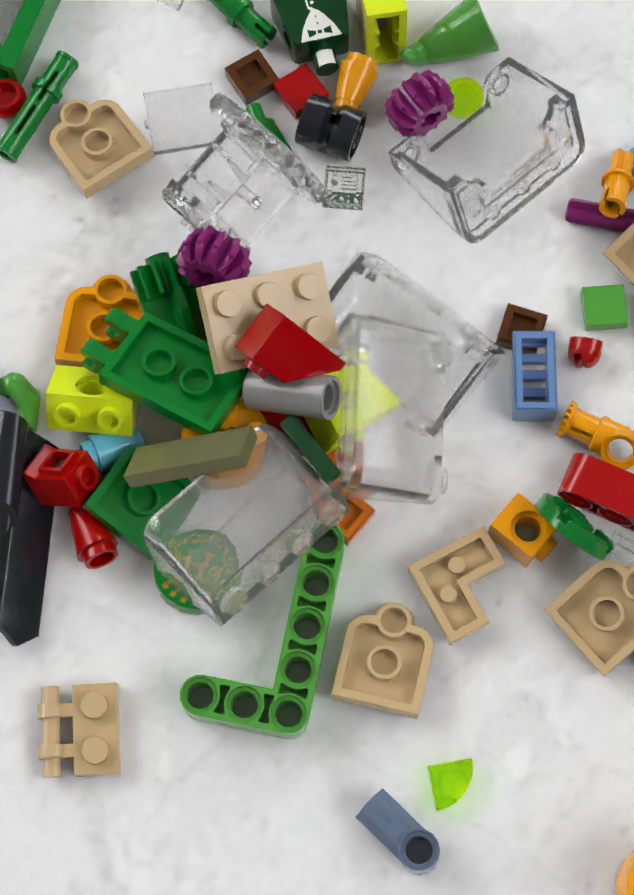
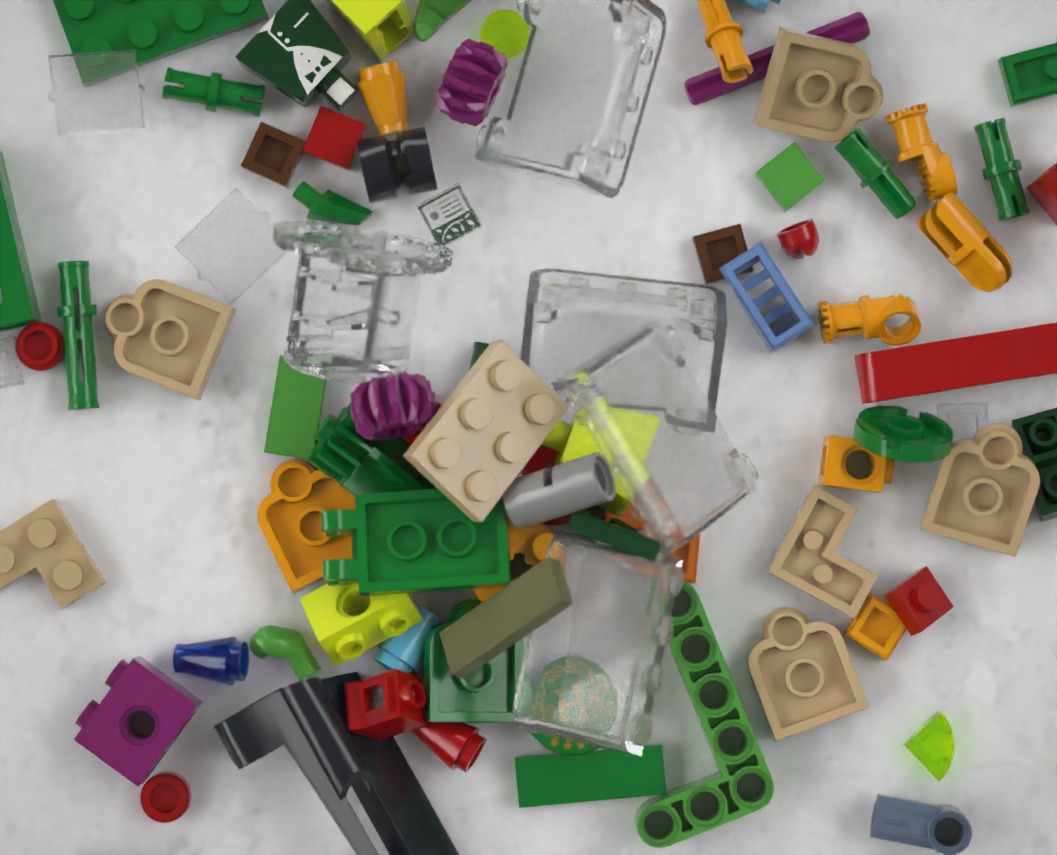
camera: 35 degrees left, 15 degrees up
(154, 235) = (294, 412): none -> bright green tile
(175, 632) = (589, 777): none -> green tile
(284, 349) = (532, 461): red slope -> none
(464, 664) = (876, 627): none -> light orange tile
(508, 662) = (919, 601): none -> red plate

